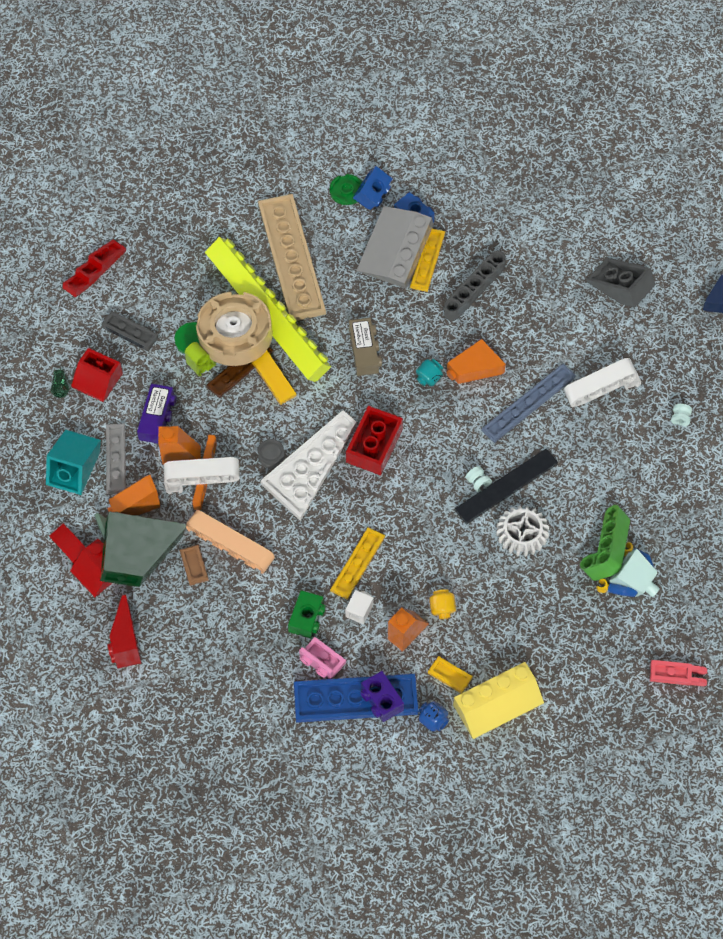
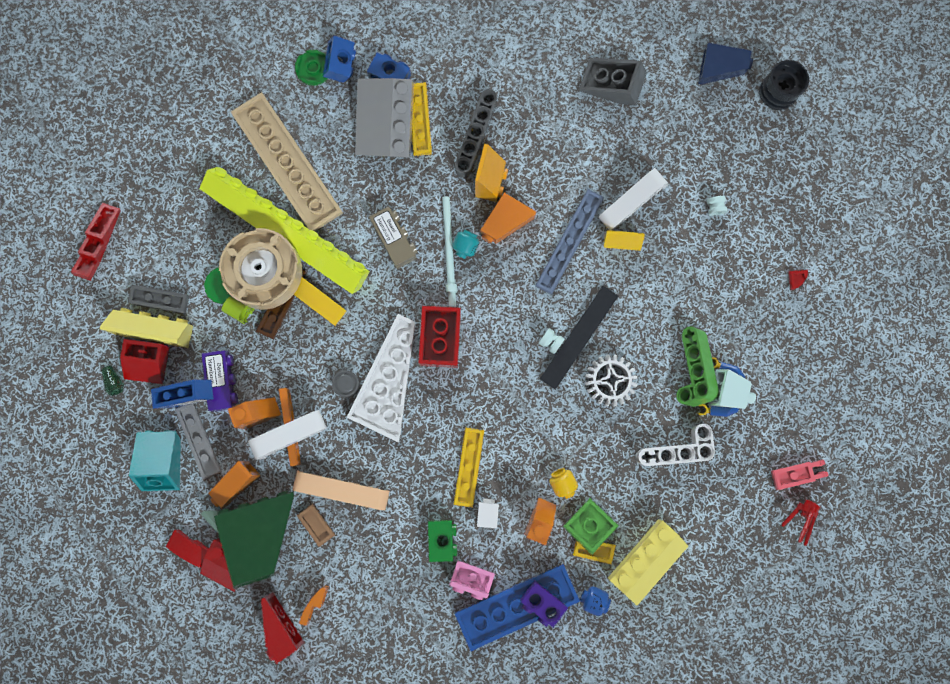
camera: 20 degrees left, 20 degrees up
(120, 408) = (182, 394): none -> blue brick
(132, 360) = (148, 328): none -> light yellow slope
(168, 626) = (316, 601): none -> orange slope
(402, 405) = (451, 287): none -> light aqua bar
(454, 650) = (590, 526): none -> bright green tile
(473, 318) = (490, 175): none -> light orange slope
(562, 609) = (674, 451): none -> white beam
(580, 416) = (623, 240): none -> yellow slope
(673, 709) = (809, 511): none -> red plant

